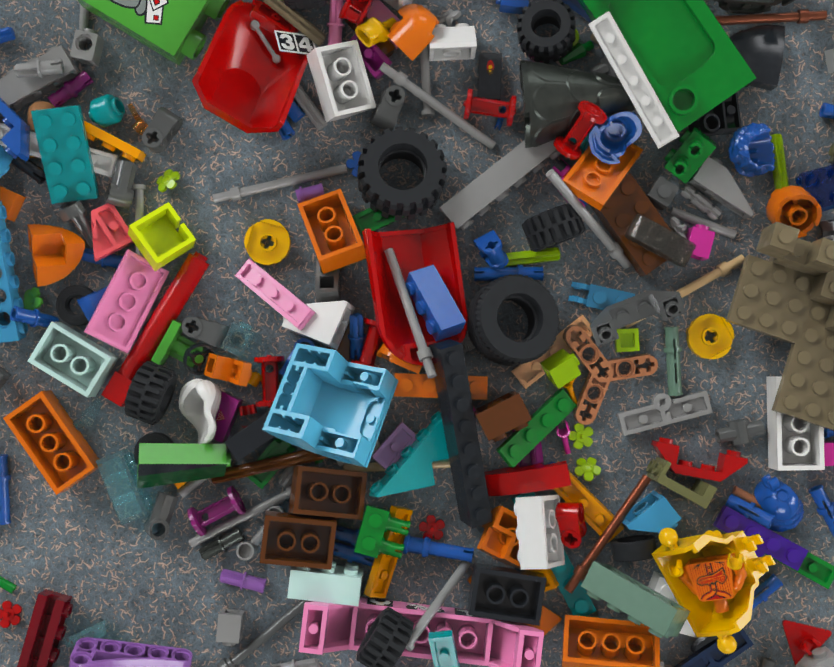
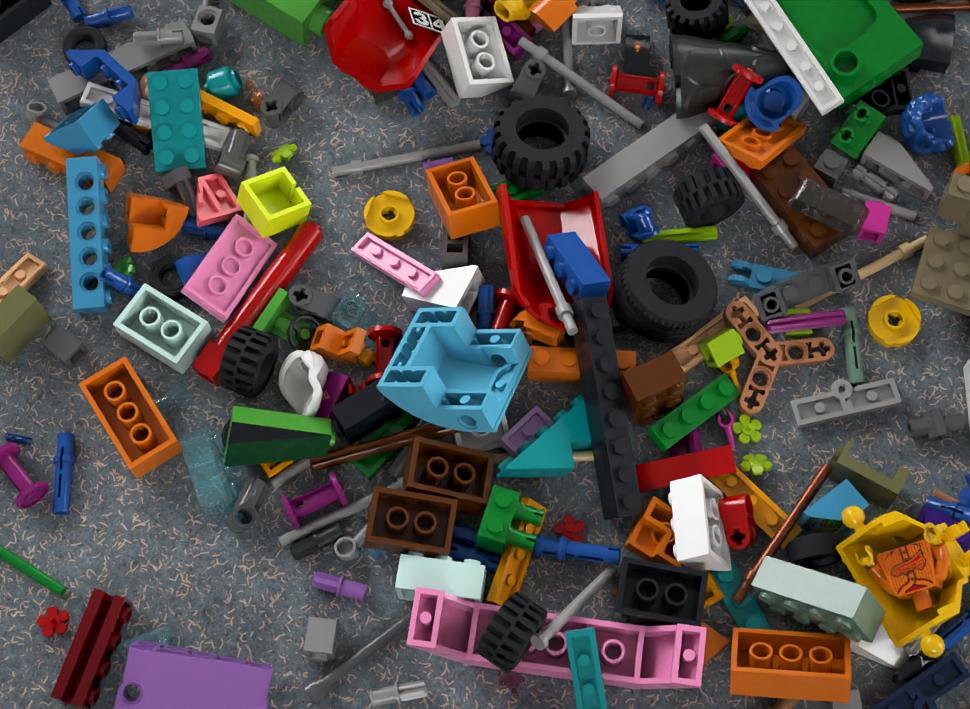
camera: 10 degrees right, 20 degrees down
(636, 343) = (806, 321): none -> magenta axle
(726, 464) = (924, 456): red slope -> none

